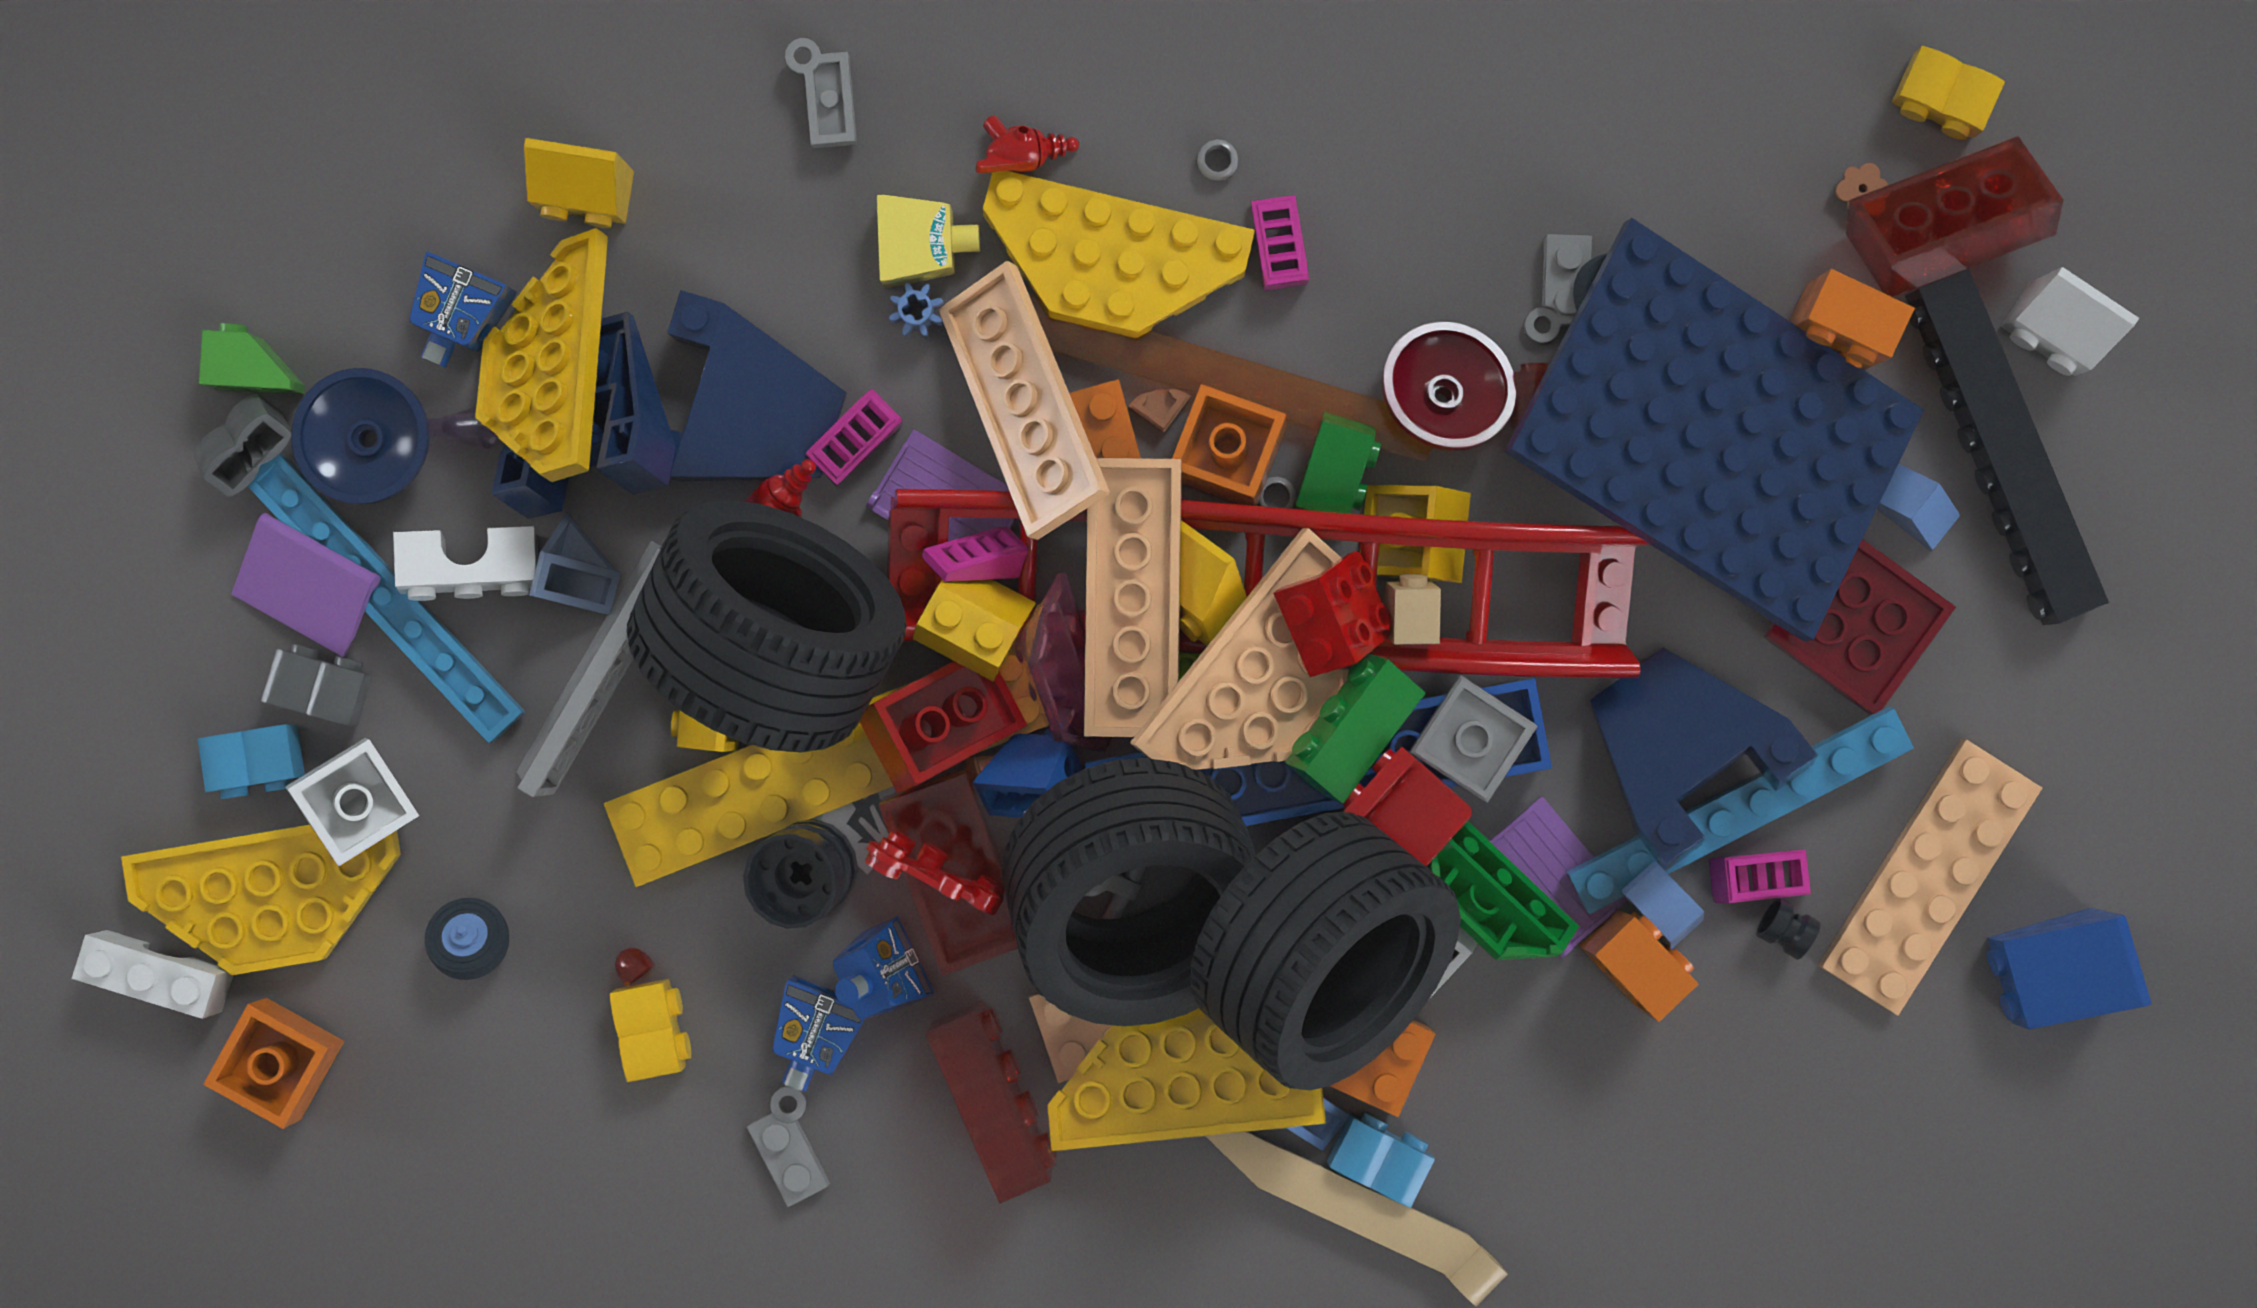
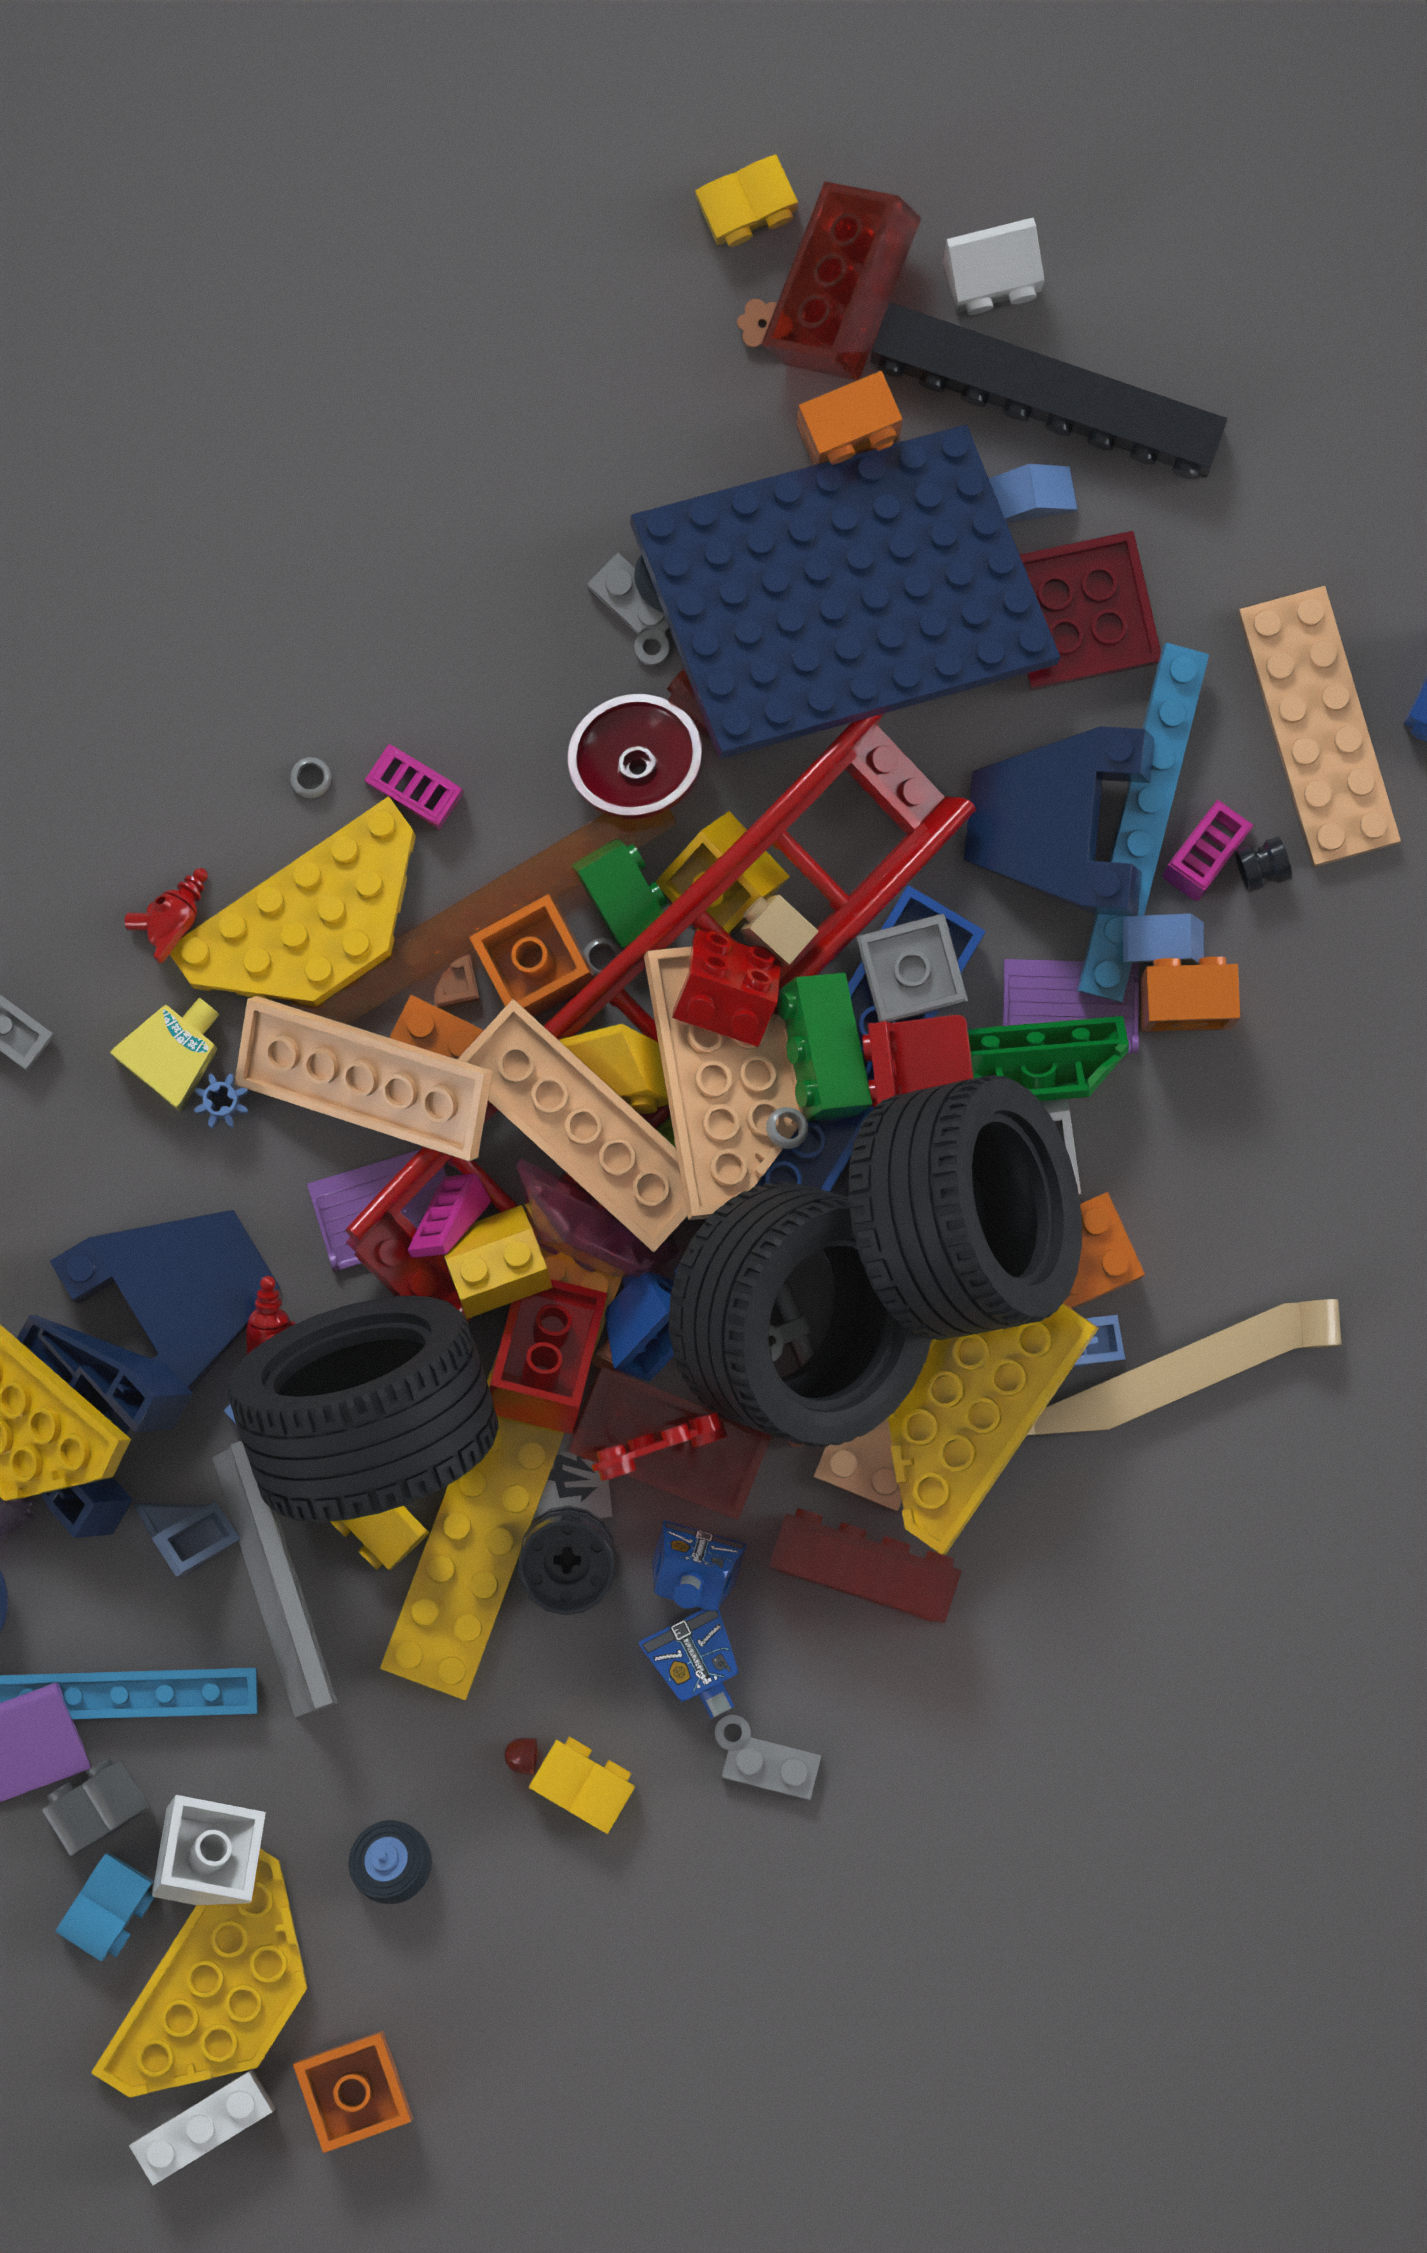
camera: 55 degrees left, 5 degrees down
(425, 569) = (86, 1639): white arch -> none
(842, 426) = (274, 1193): dark pink slope -> none
(1282, 756) = (781, 1141): none -> light grey piece
(1381, 1159) = (1168, 1318): dark azure brick -> none

